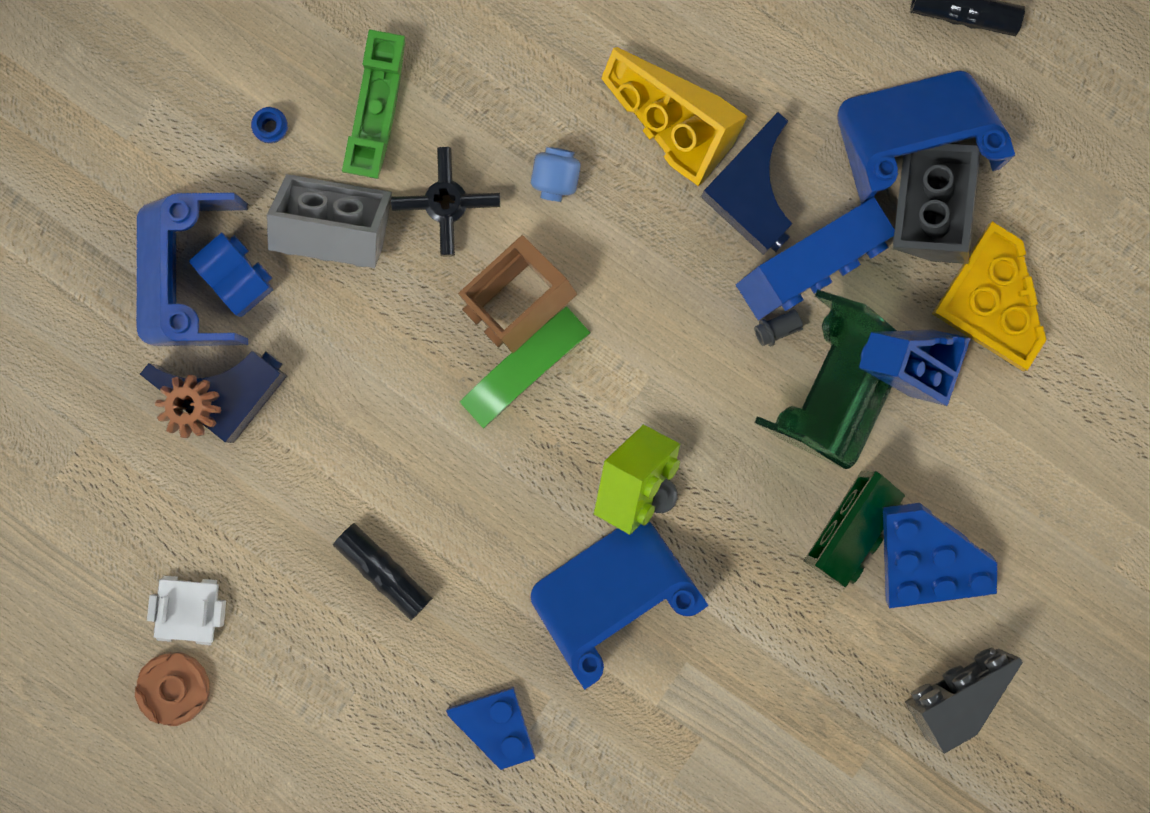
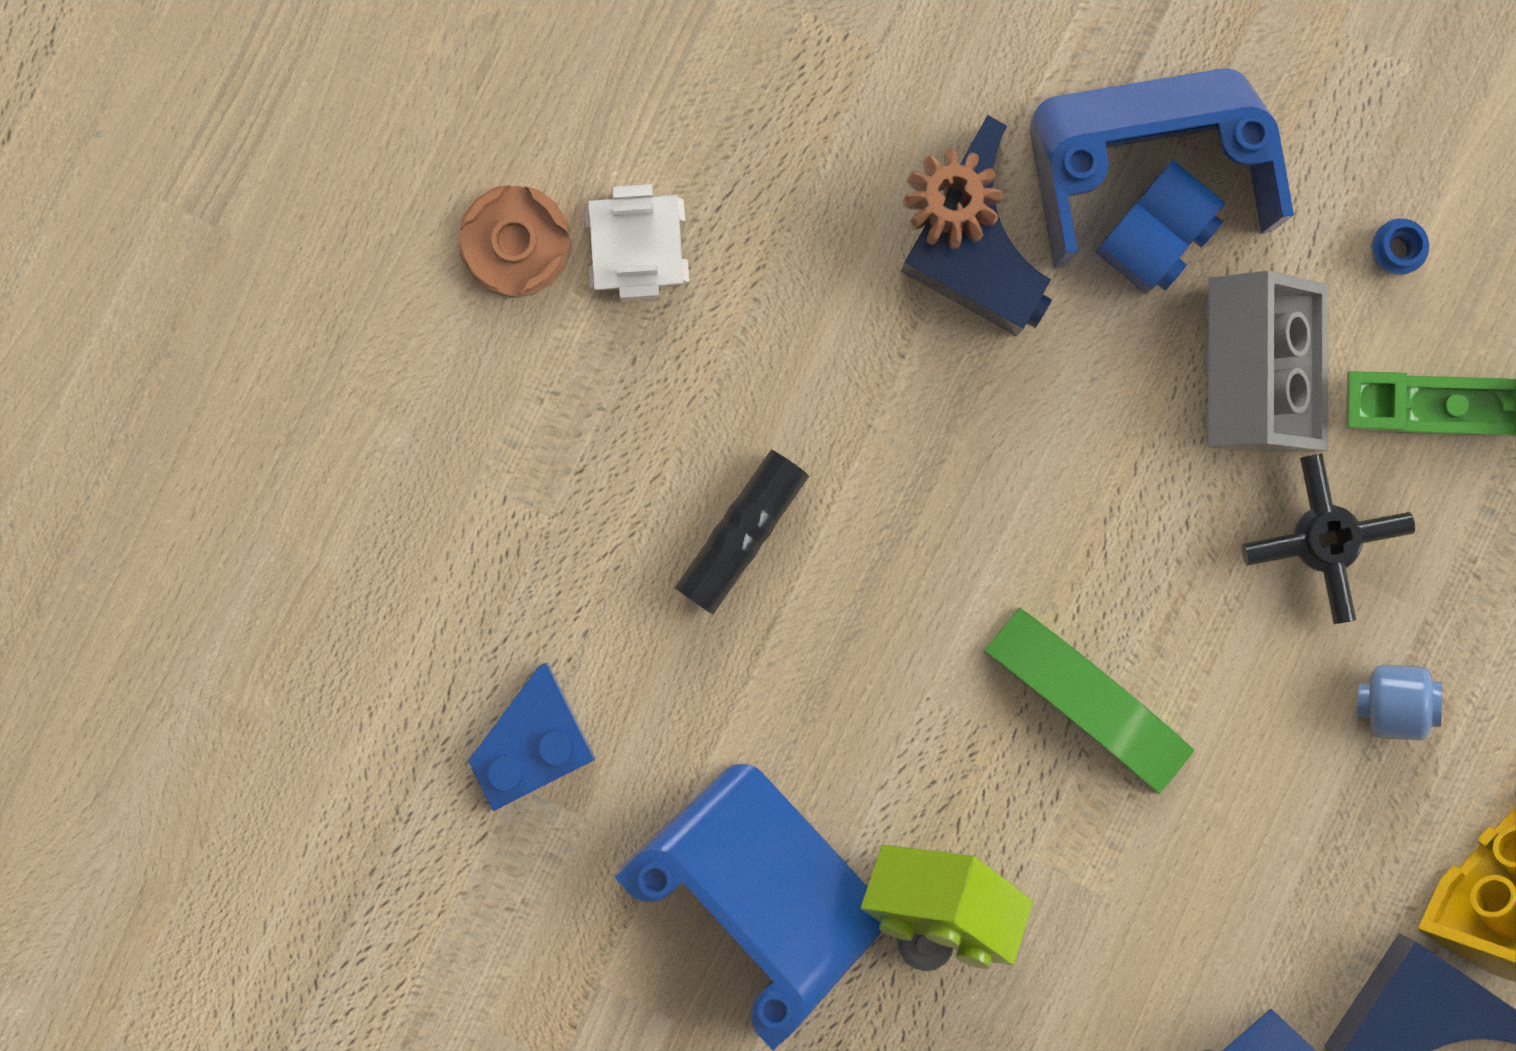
camera: 85 degrees right, 0 degrees up
(500, 274) = (1231, 641): medium nougat window -> none

